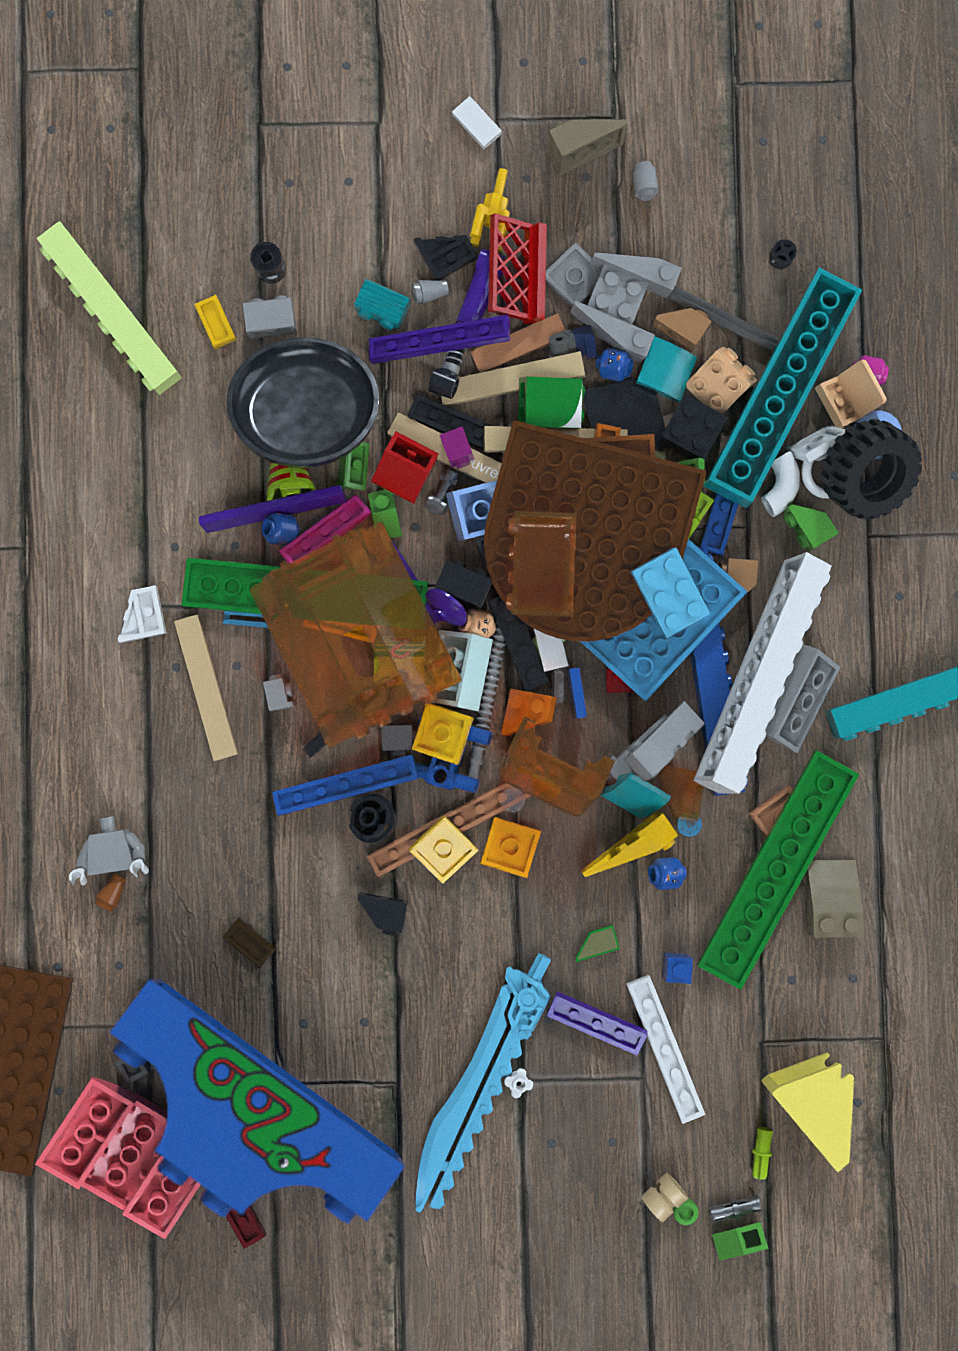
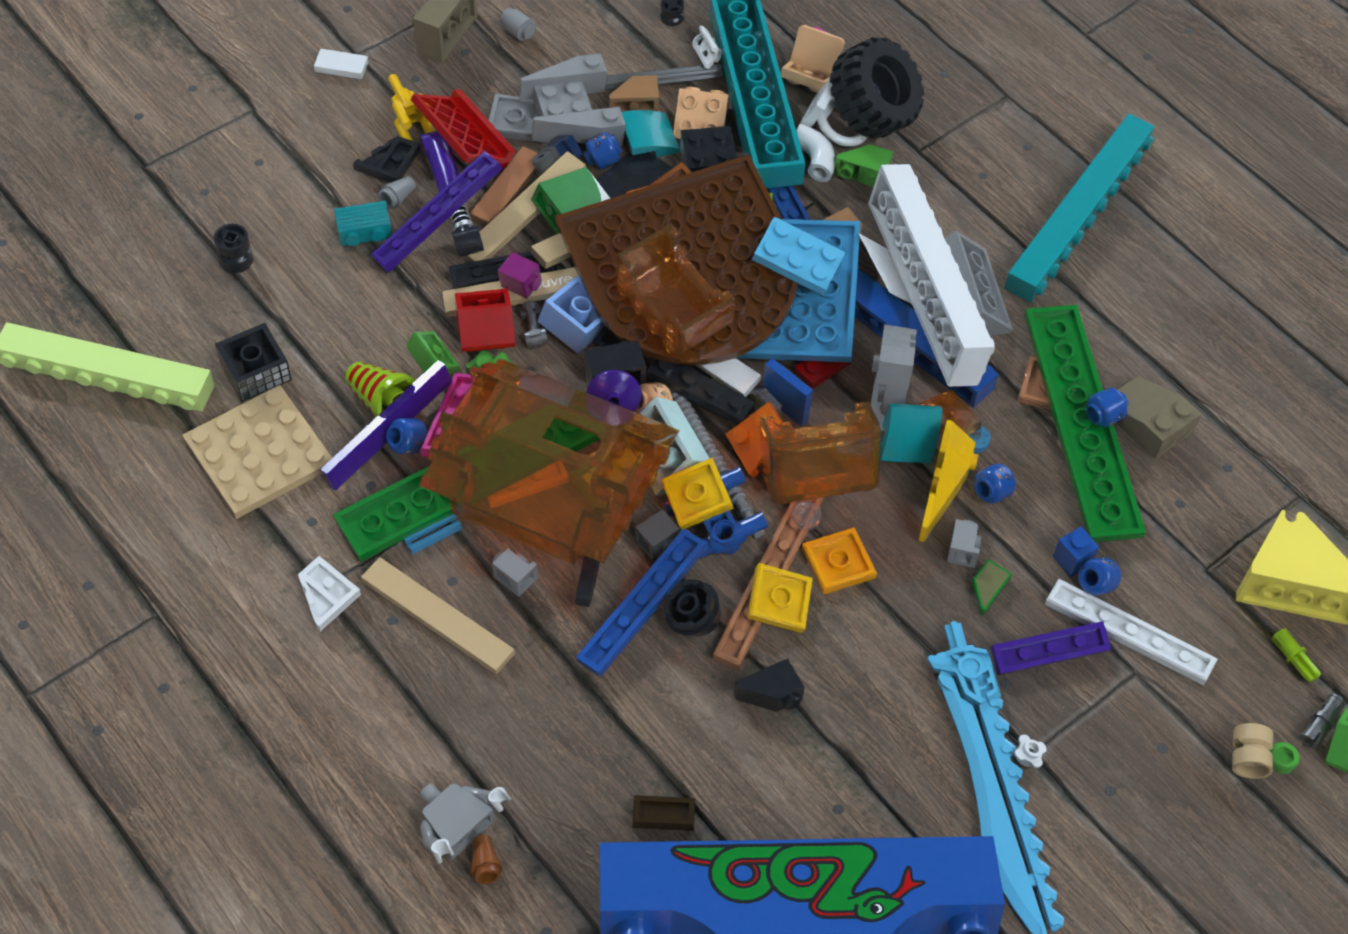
camera: 40 degrees left, 30 degrees down
(174, 460) = (257, 451): none -> tan plate
(209, 382) = (253, 361): none -> black brick
(215, 322) = (213, 323): yellow tile -> none
(269, 317) = (266, 288): light grey brick -> none
(302, 402) = (355, 317): black dish -> none
(606, 901) = (964, 543): none -> light grey brick
(676, 999) = (1099, 576): none -> blue head
(736, 641) = (886, 268): none -> white sticker
(779, 313) = (707, 45): none -> white piece
(799, 880) = (1107, 407): none -> blue head

